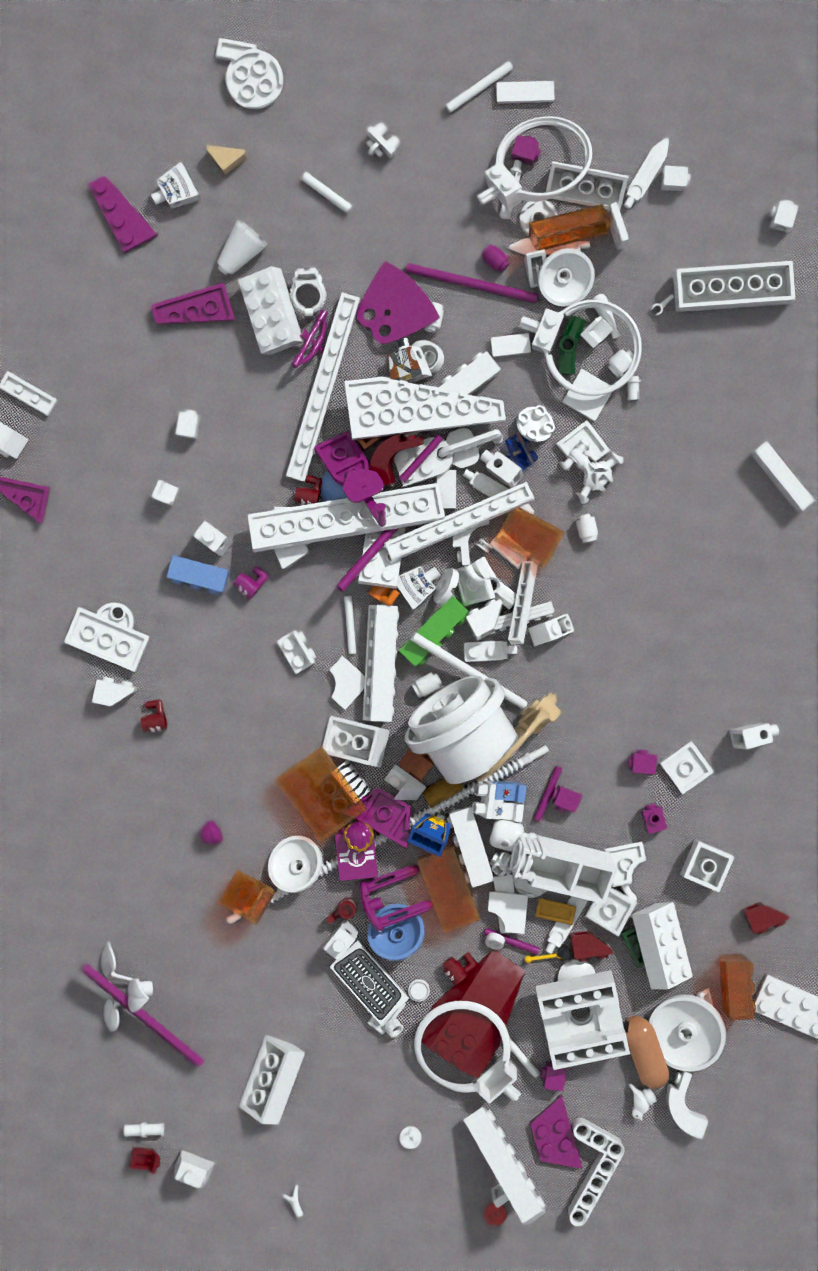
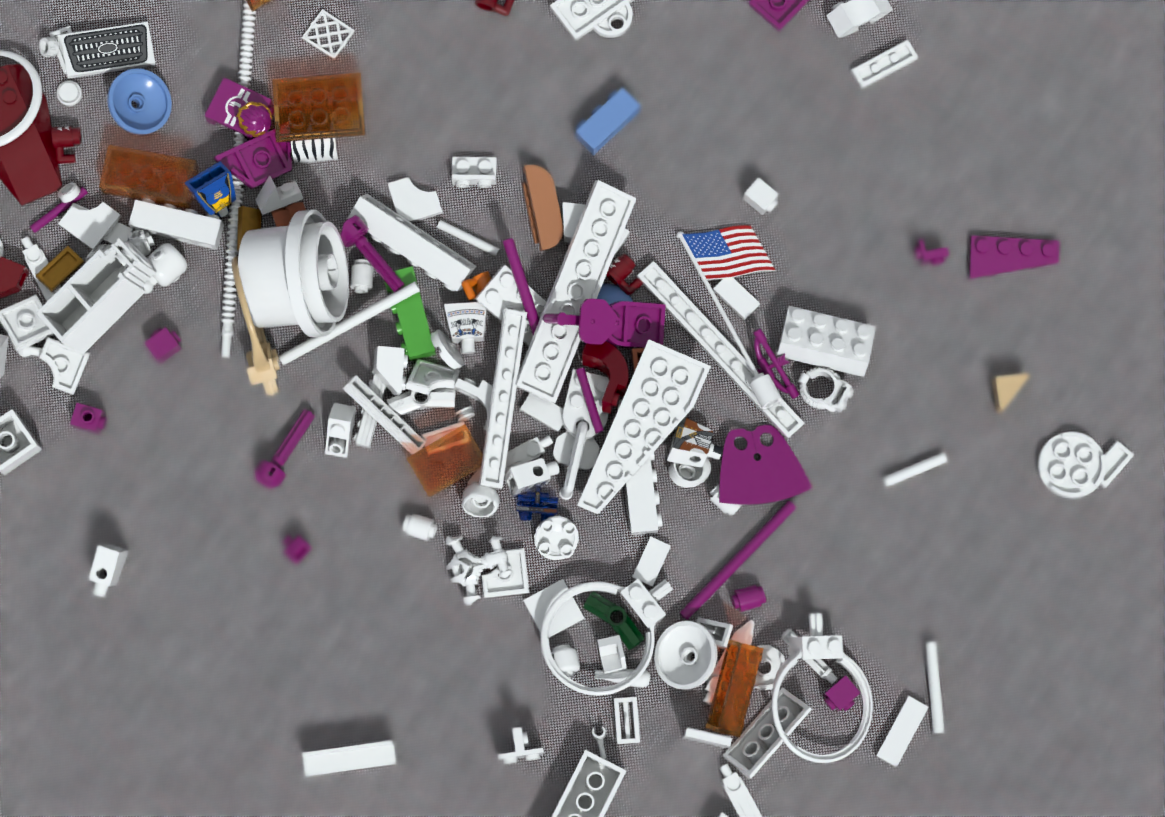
camera: 115 degrees right, 10 degrees down
(156, 267) = (935, 257): none -> magenta bracket
(165, 492) = (707, 135): white panel -> none
(176, 188) = (1005, 323): white torso -> none
(198, 306) = (873, 277): magenta wing -> none
(212, 538) = (635, 154): white torso -> none
(239, 248) = (908, 350): white cone -> none
(243, 824) = (335, 21): none -> white window
(247, 585) = (567, 161): magenta piece -> none
(248, 424) = (726, 255): none -> flag
(275, 399) = (736, 297): none -> white tile
(285, 863) = (275, 41): white dish -> none
(295, 582) = (542, 207): none -> nougat brick
(340, 940) = (164, 44): white torso -> none
(346, 909) = (191, 67): dark red piece -> none
(355, 741) = (349, 174): white slope -> none
(371, 906) = (180, 93): magenta piece -> none
(376, 134) = (925, 557): white hips -> none
(401, 708) = (355, 235): none -> magenta piece
(487, 651) = (358, 355): white hinge -> none
(500, 800) = (203, 277): white hips -> none
(544, 495) = (480, 500): none -> white hair
(548, 792) = (182, 334): magenta bar -> none
(562, 954) = (13, 251): hinge -> none
(613, 660) = (283, 453): none -> magenta piece
(633, 388) = (532, 659): white pin -> none
(642, 762) = (151, 441): magenta brick -> none
(649, 285) = (628, 740): none -> white tile
(656, 608) = (296, 548): none -> magenta tile
(686, 767) = (118, 483): white tile -> none
(706, 353) = (520, 742): none -> white bracket

